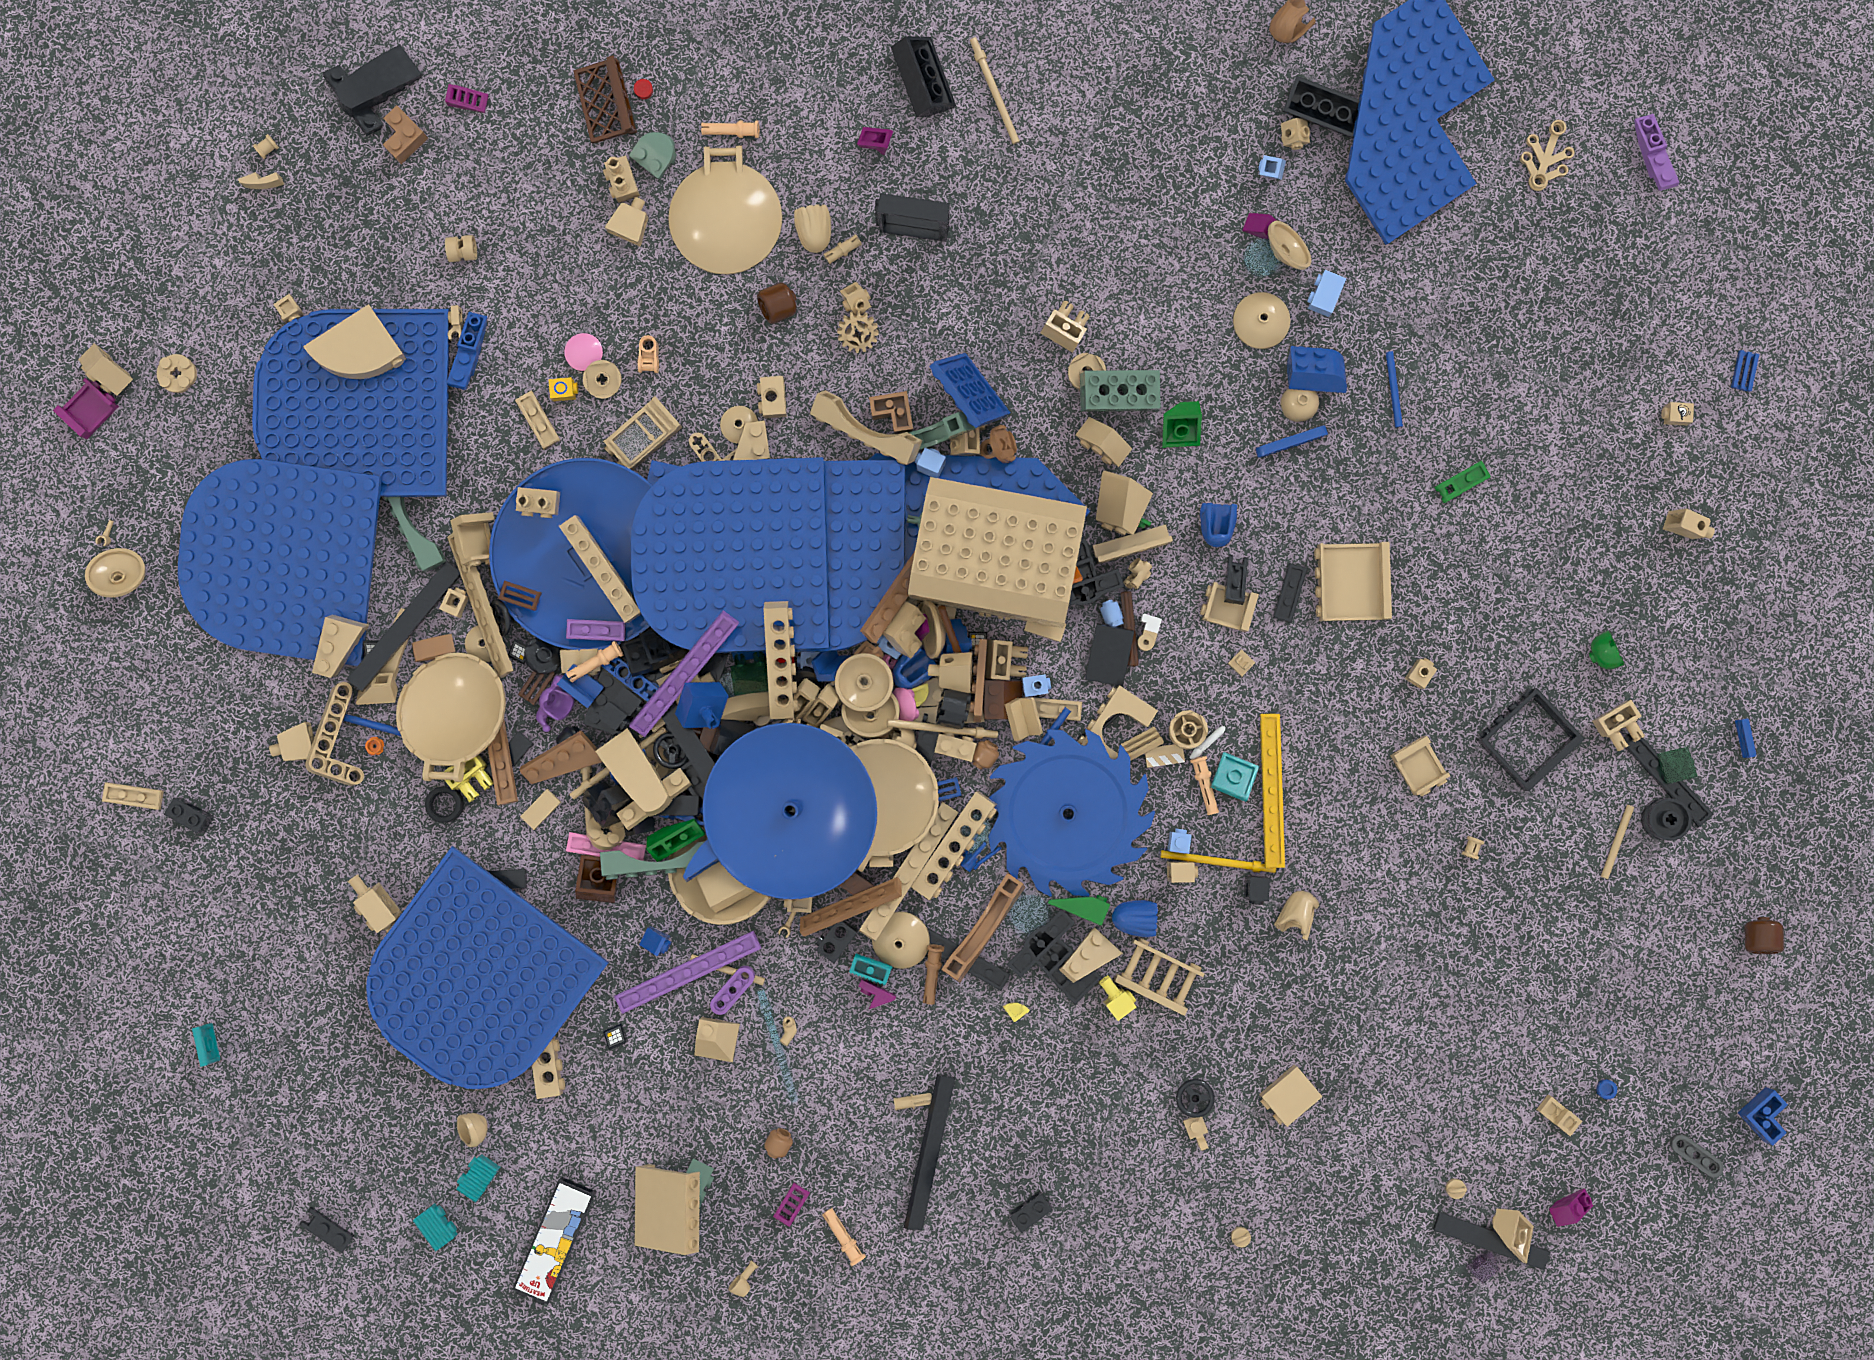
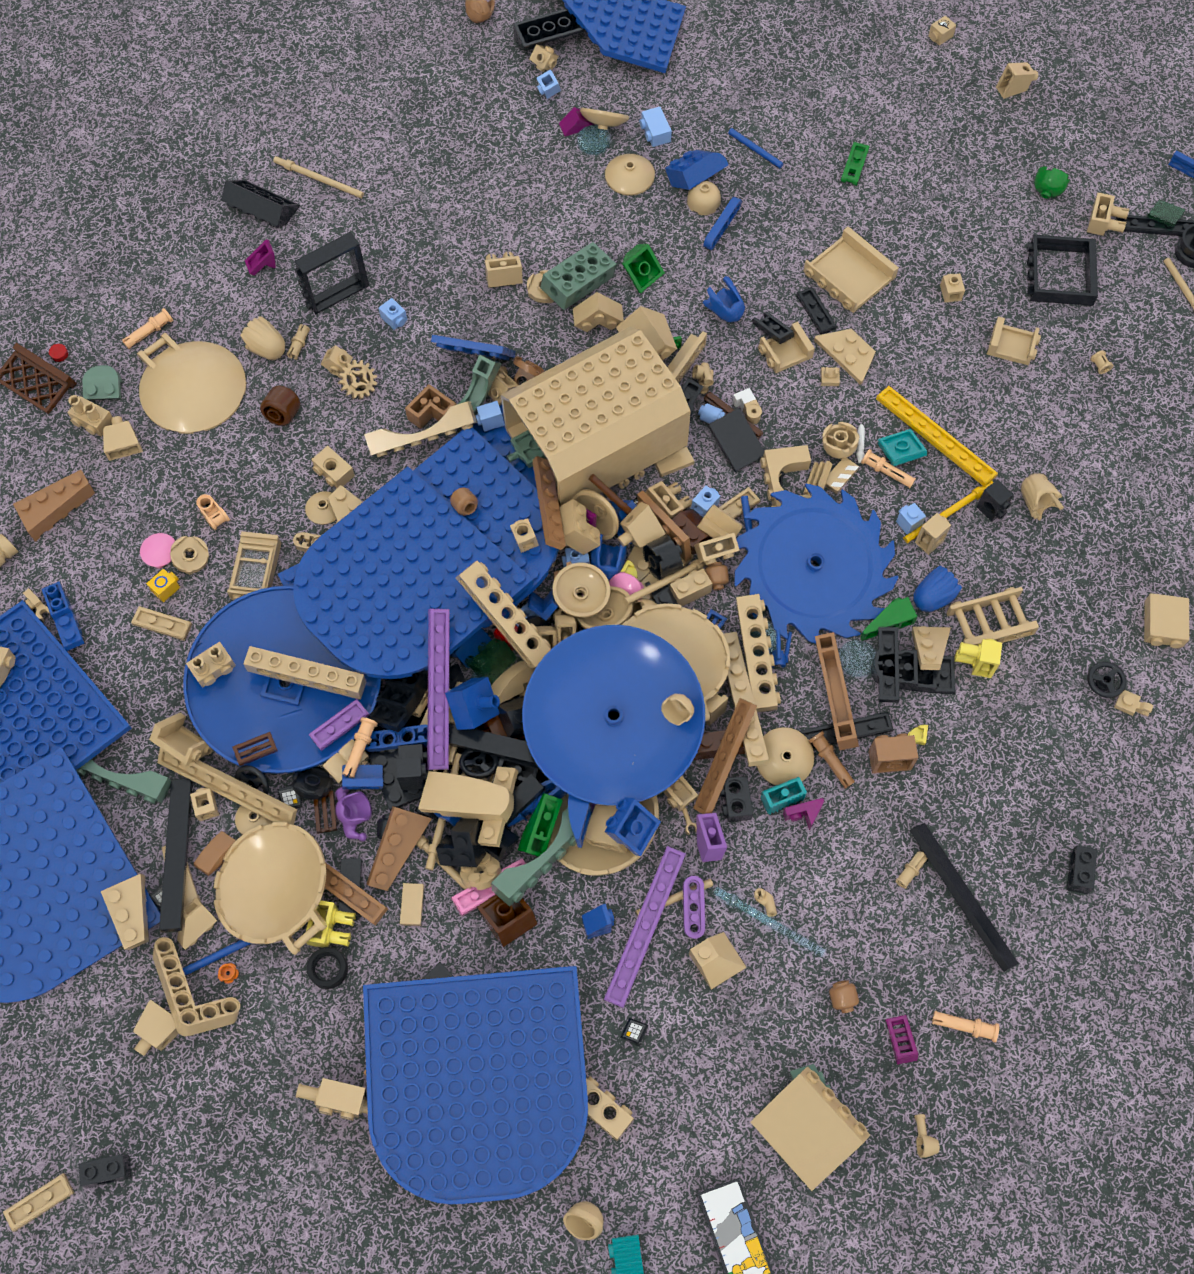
camera: 40 degrees left, 20 degrees down
(524, 238) = (52, 503): none -> medium nougat wedge
(730, 903) = (632, 825): none -> blue plate
(789, 951) = (710, 837): none -> medium lavender slope
(834, 853) = (677, 709): none -> tan hair
(836, 531) = (464, 501): none -> medium nougat head
(857, 612) = (526, 541): none -> tan brick
(939, 291) = (393, 314): none -> light blue brick
(977, 1011) = (893, 753): none -> medium nougat brick
(999, 738) = (717, 547): none -> tan brick
(1278, 654) = (848, 351): none -> tan wing

